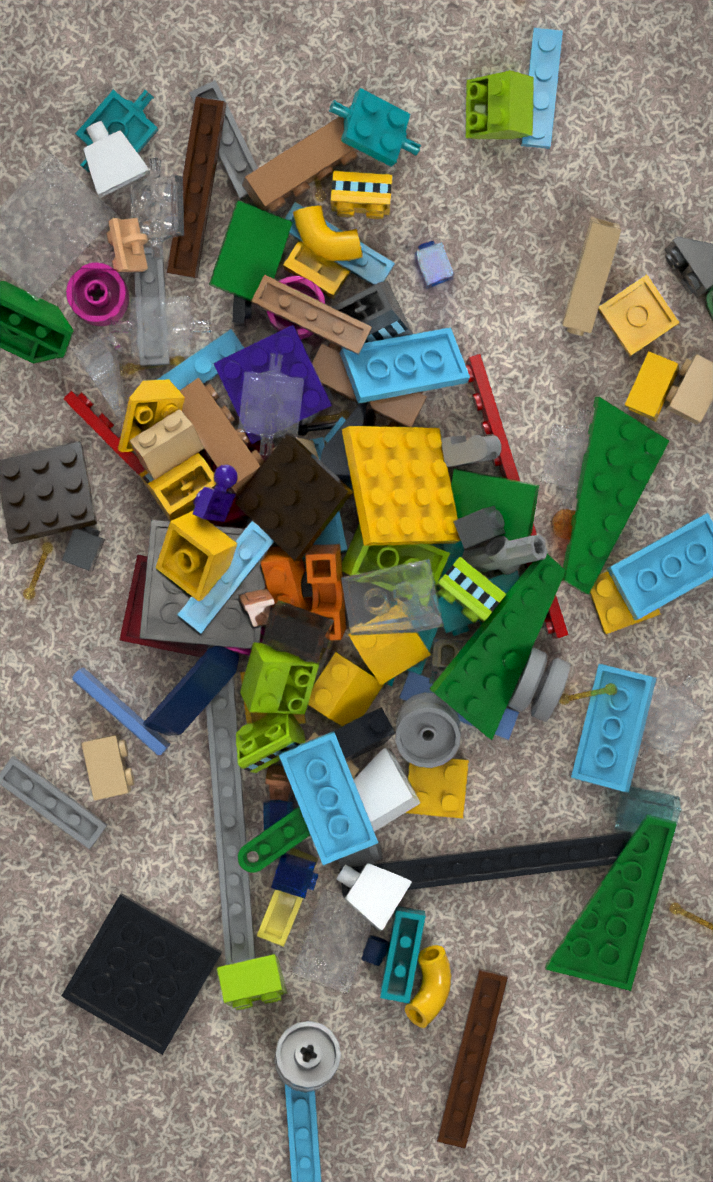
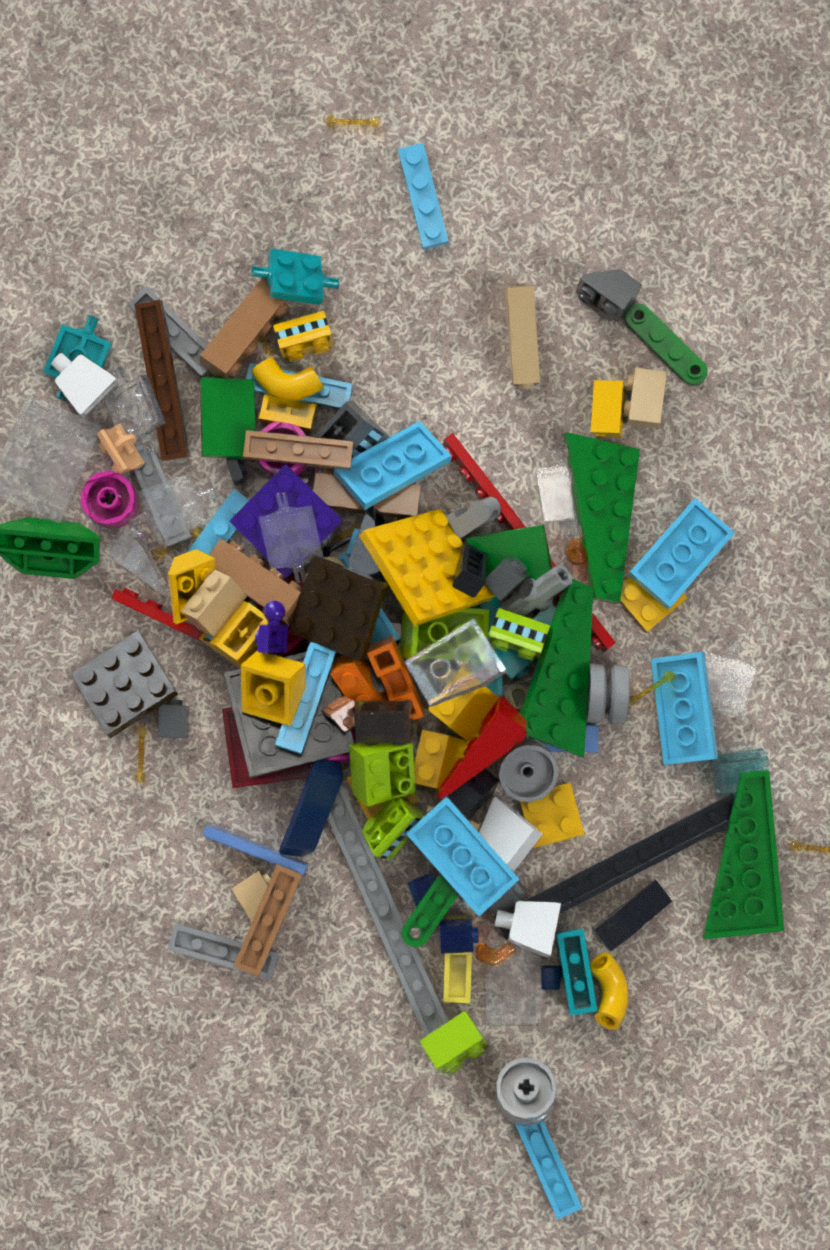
camera: 20 degrees left, 5 degrees down
(107, 789) = (267, 920): none -> medium nougat plate
(141, 973) = (355, 1073): black plate -> none
(278, 783) = (415, 861): nougat brick -> none
(323, 909) = (494, 956): none -> clear orange arm
(412, 686) = (498, 734): none -> red wedge
(433, 264) = (386, 373): clear blue brick -> none
(443, 509) = (470, 573): none -> black slope
(472, 1058) = (669, 1041): reddish brown plate -> none
(480, 918) = (631, 915): none -> black slope
(499, 106) = (393, 223): lime slope -> none
(638, 315) = (574, 354): yellow plate -> none

